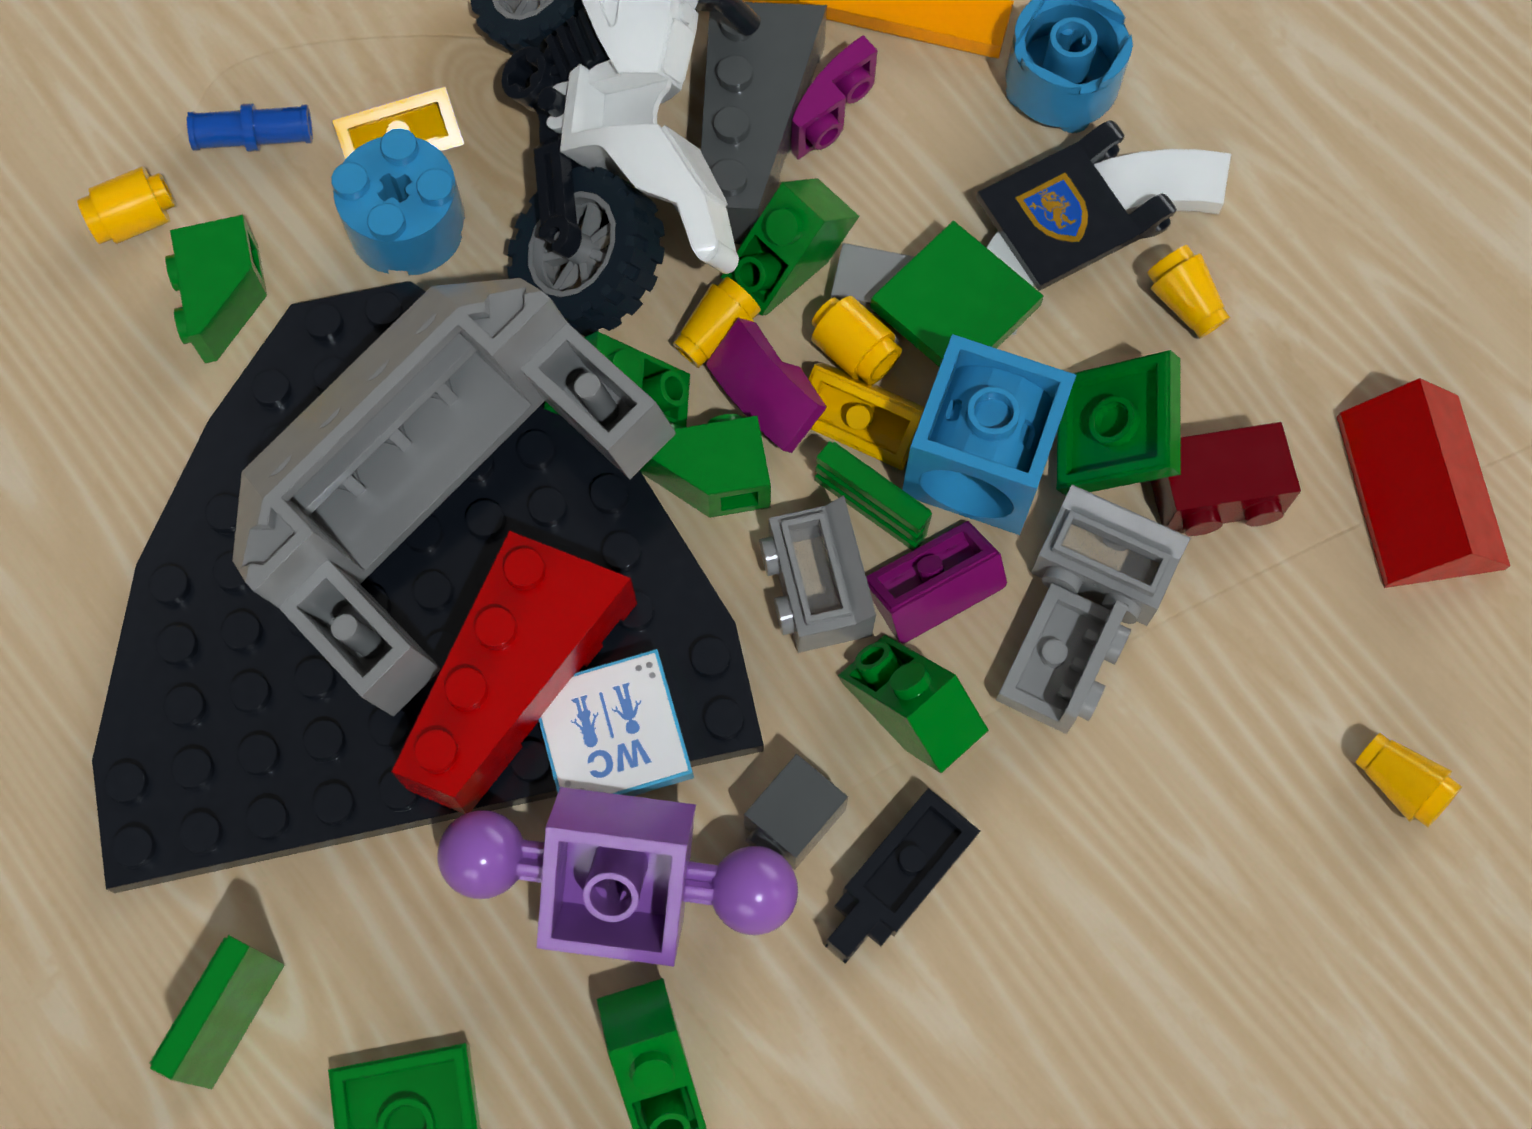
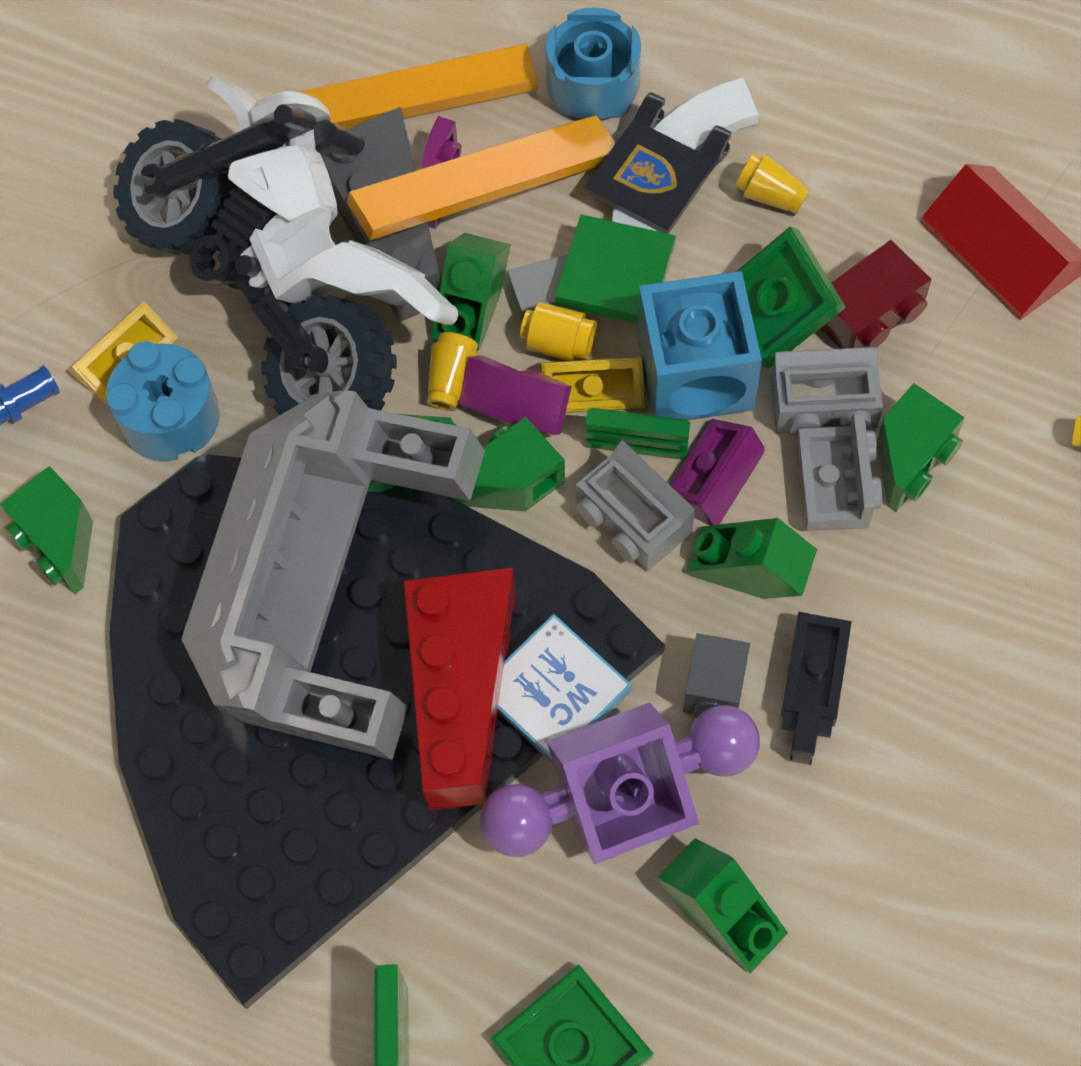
camera: 25 degrees left, 5 degrees down
(866, 125) = (480, 177): none -> light orange tile
(1174, 663) = (912, 441): none -> green slope

